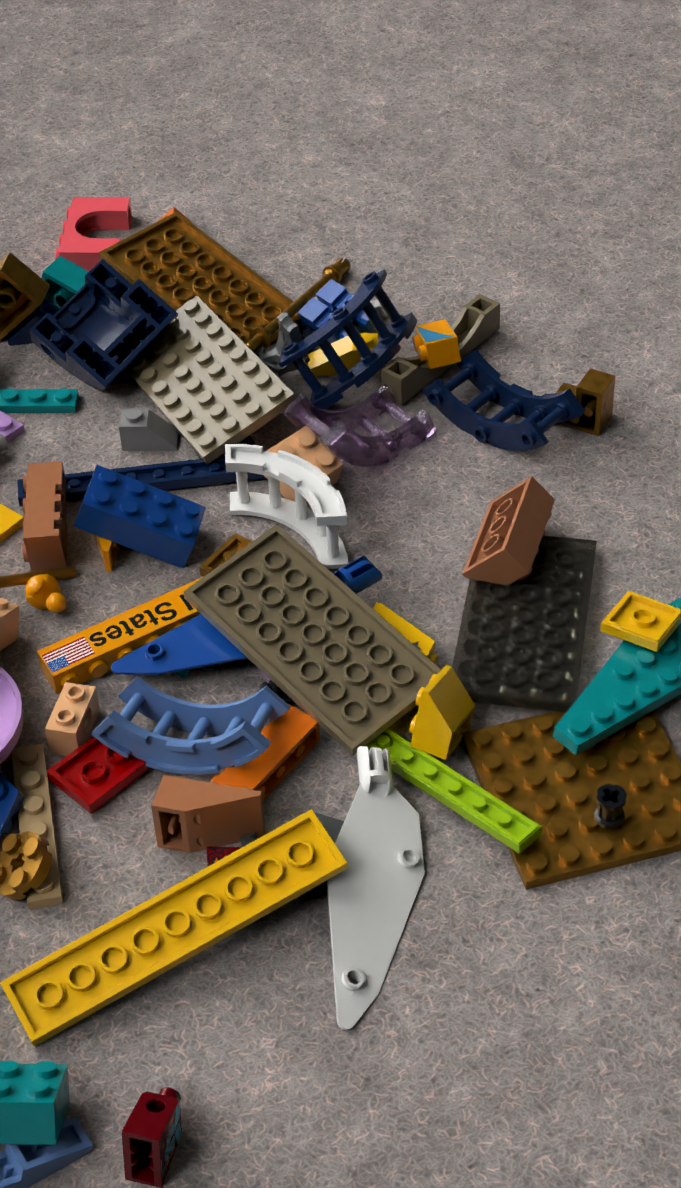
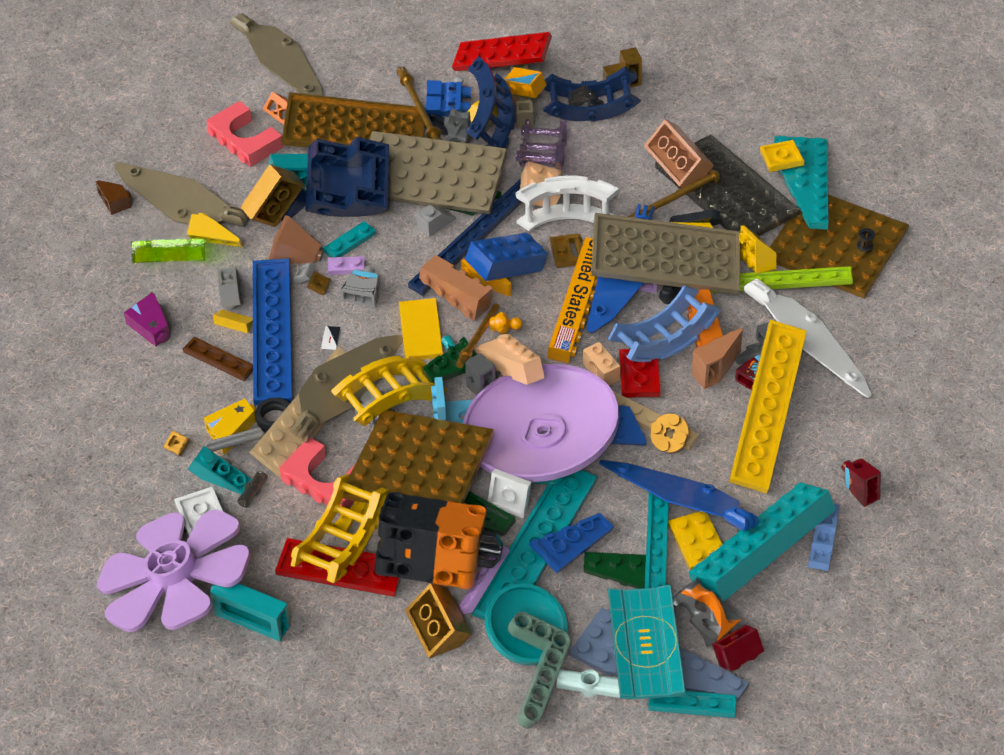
camera: 45 degrees left, 5 degrees up
(243, 184) = (279, 54): none -> dark tan wing
(436, 629) = (708, 216): none -> black beam
(460, 297) = (503, 50): none -> red plate
(491, 401) = (583, 95): none -> clear smoke bracket
(515, 587) = (712, 176): none -> pearl gold bar

